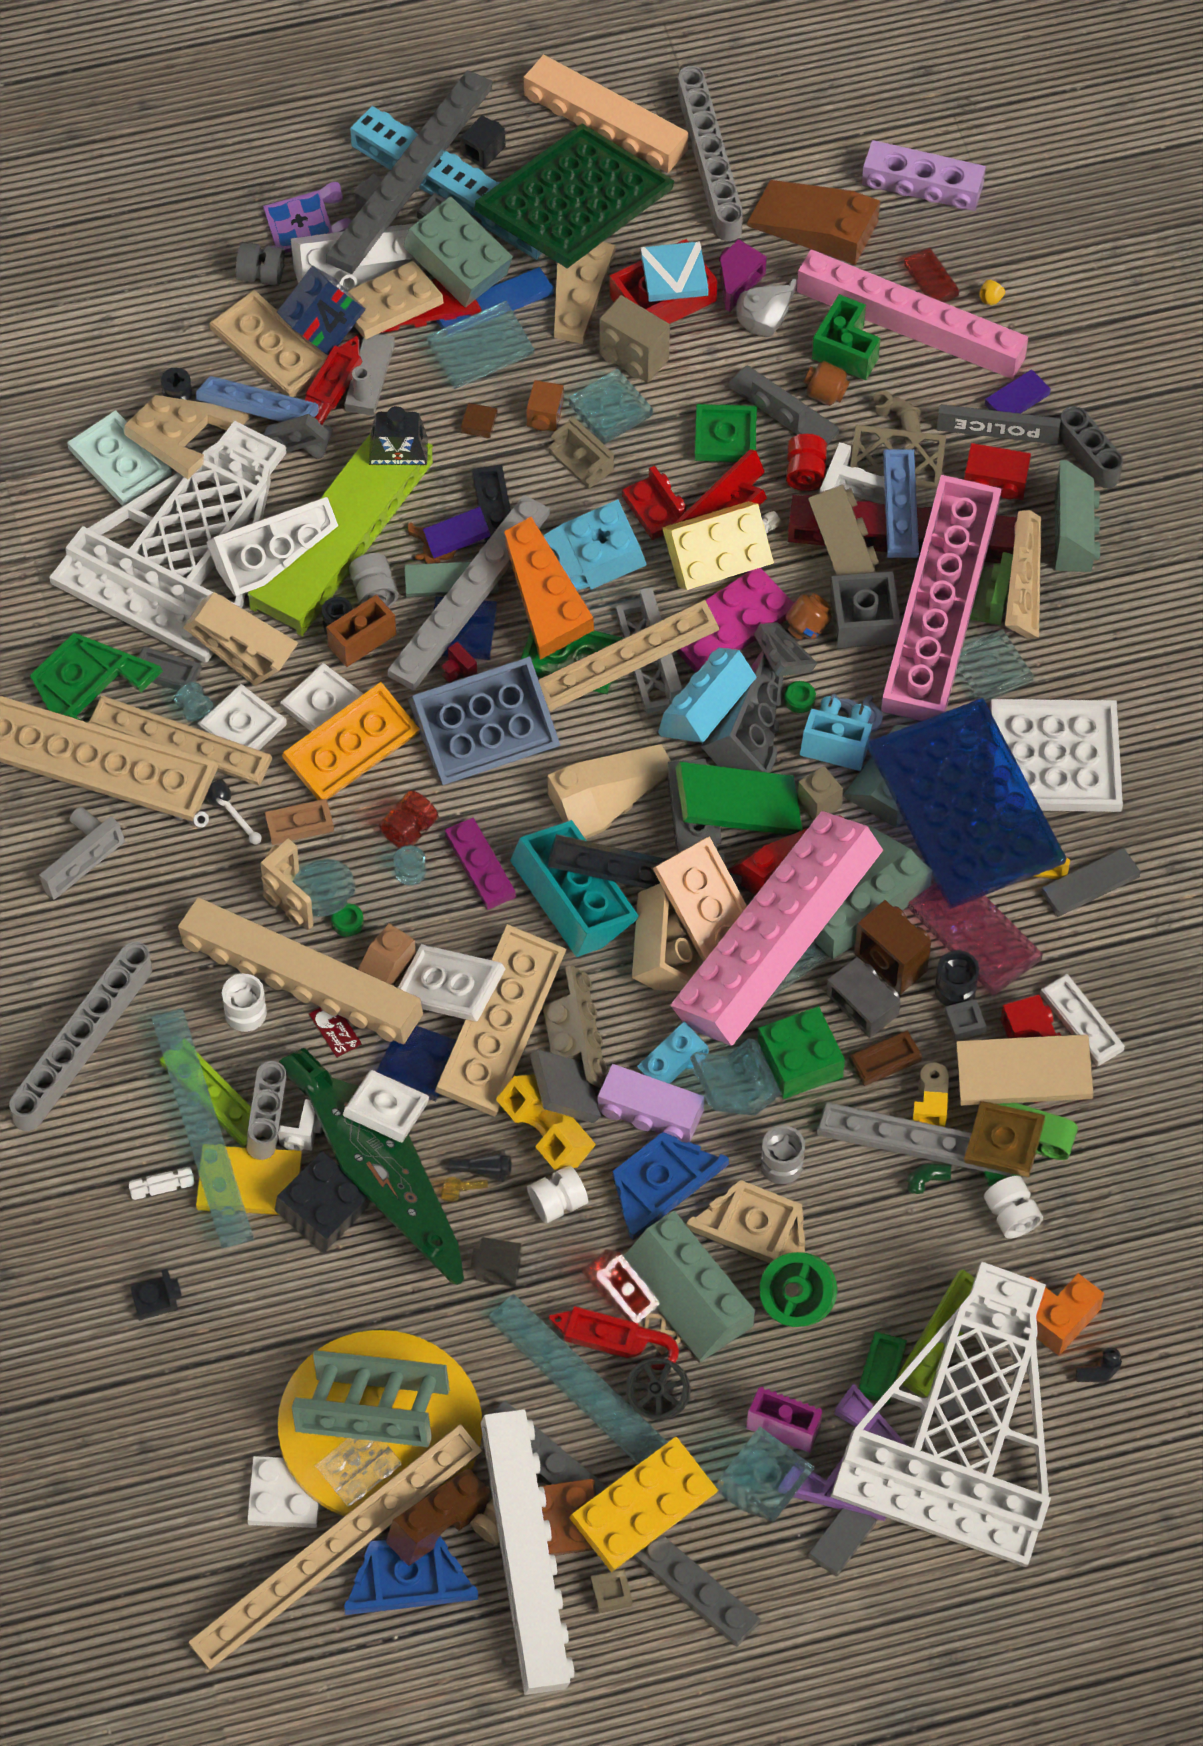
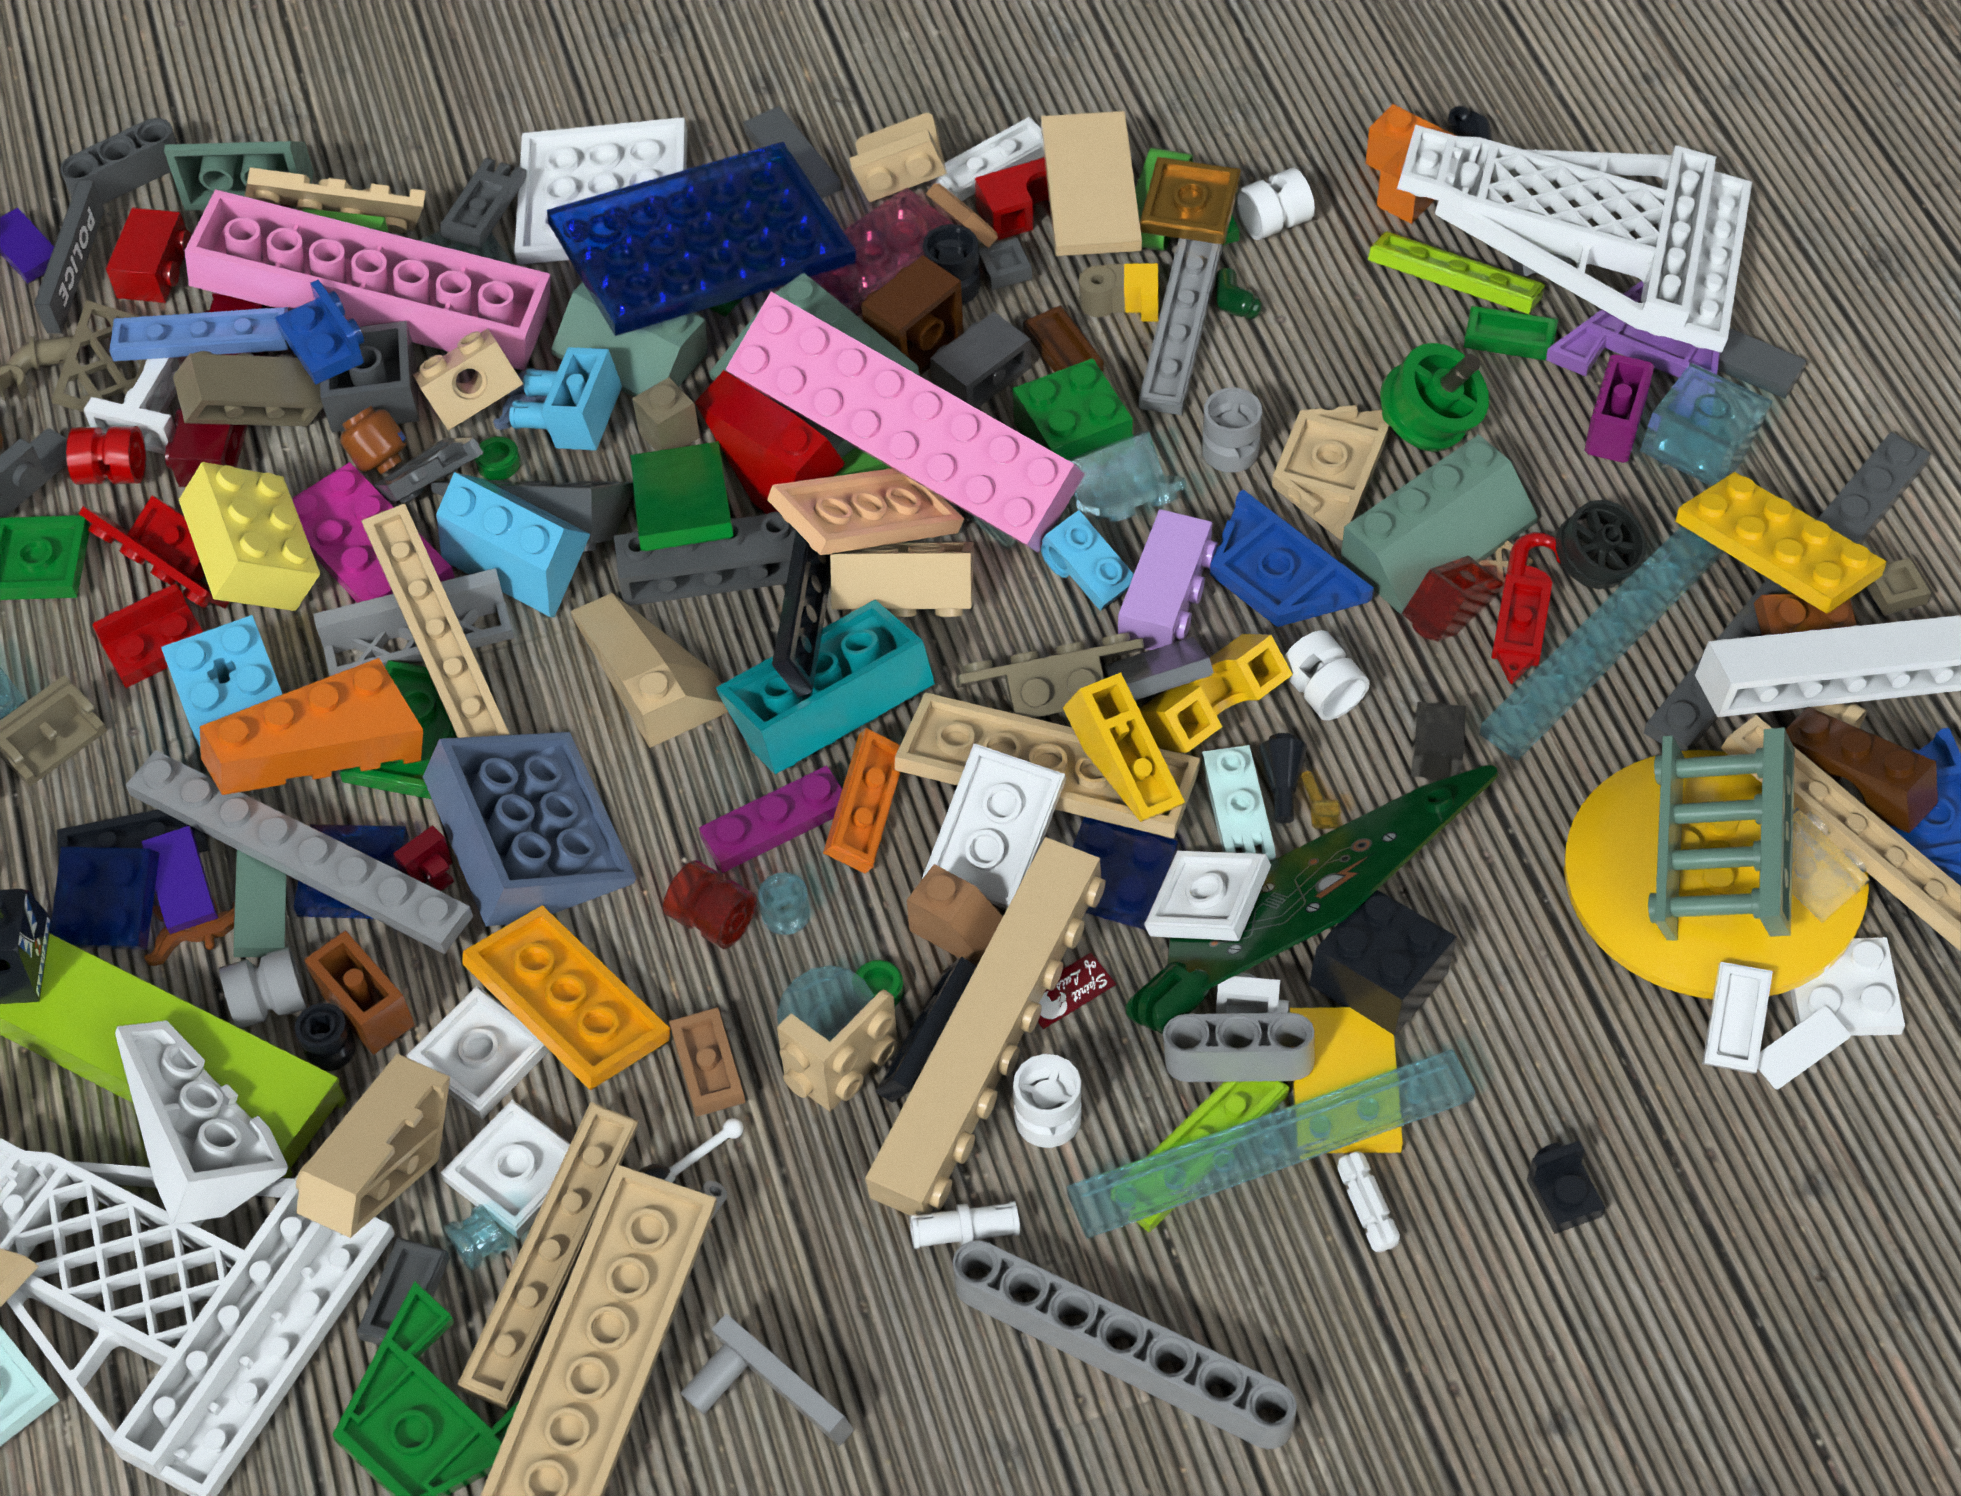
camera: 90 degrees left, 5 degrees down
(171, 958) = (964, 1224): none -> white pin
(238, 1453) = (1802, 1047): none -> white sticker
(260, 1413) = (1737, 1017): none -> white tile
(305, 939) = (926, 1031): none -> black plate
(446, 493) = (104, 897): none -> clear blue plate
(463, 1137) = (1237, 800): none -> light aqua hinge
(482, 911) = (864, 802): none -> orange tile
(493, 1055) = (1123, 746): none -> yellow slope
(854, 668) = (459, 401): none -> tan brick
(880, 570) = (322, 335): none -> blue bracket
(1005, 986) = (962, 214): none -> medium nougat tile
(1034, 673) = (482, 203): none -> dark grey hinge
(1074, 950) = (898, 157): none -> tan bracket

